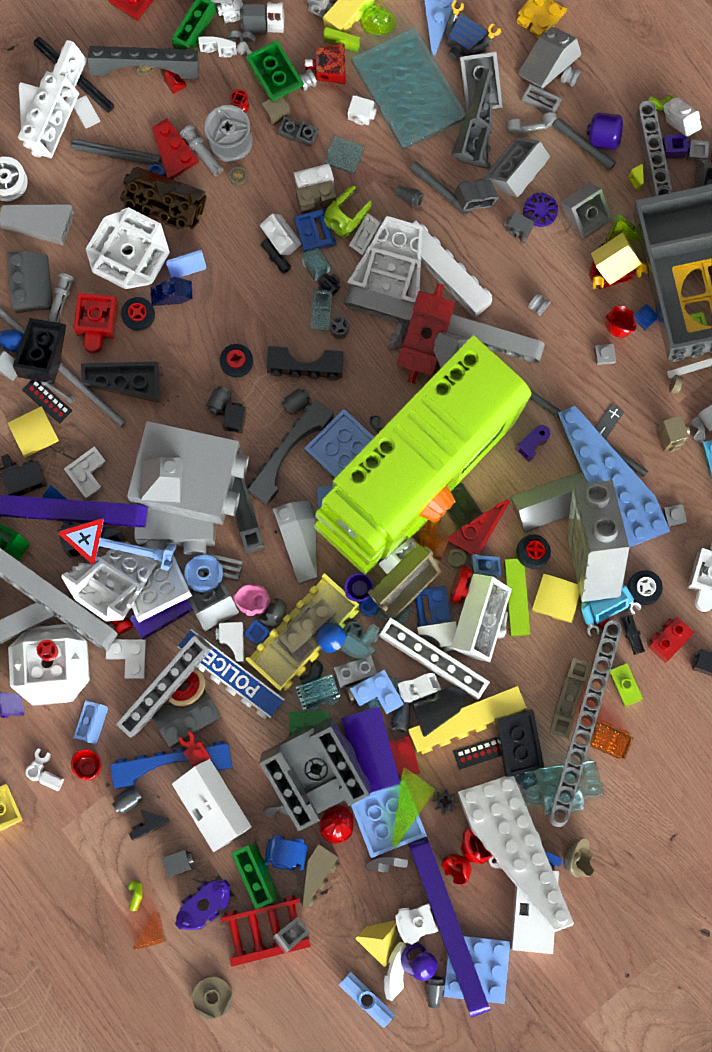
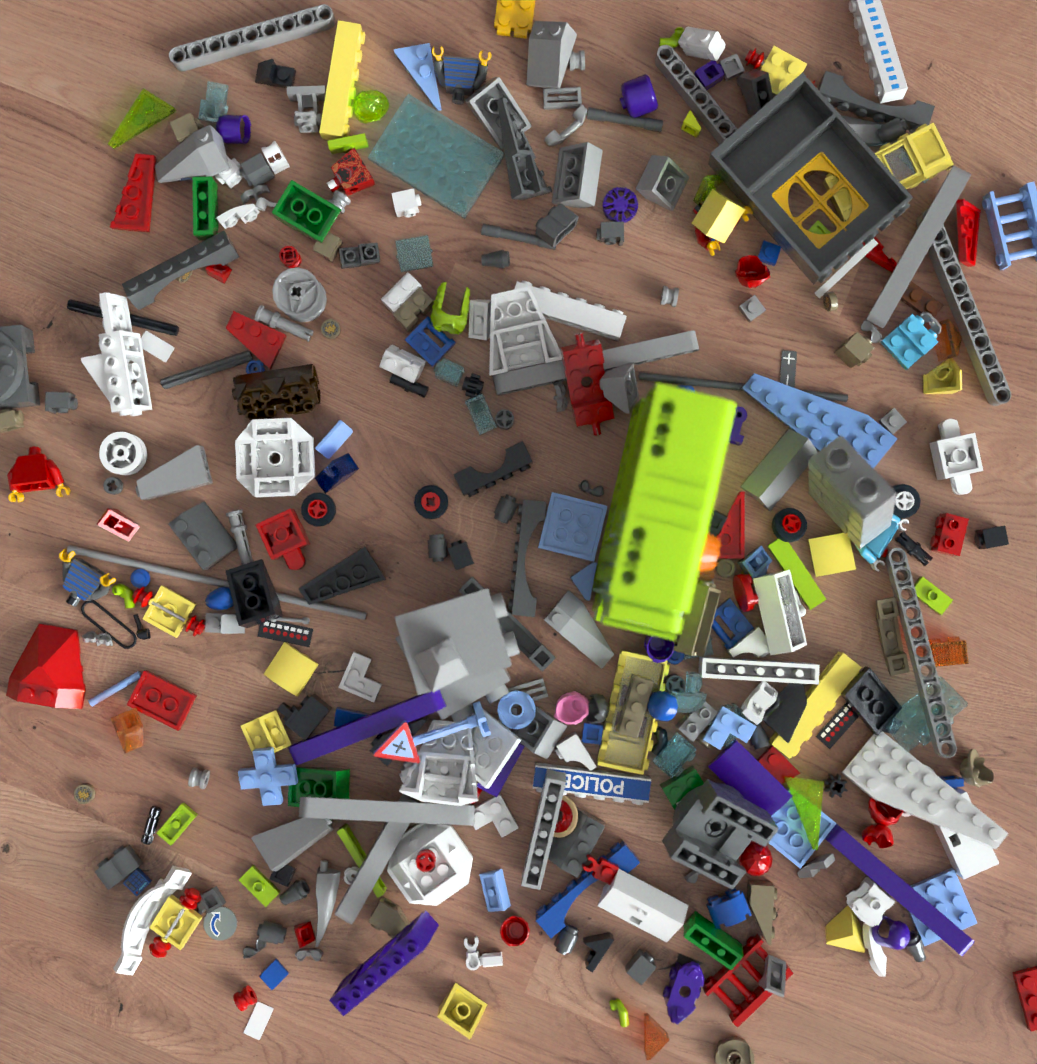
camera: 25 degrees left, 10 degrees up
(376, 1009) = (852, 983): light blue piece -> none

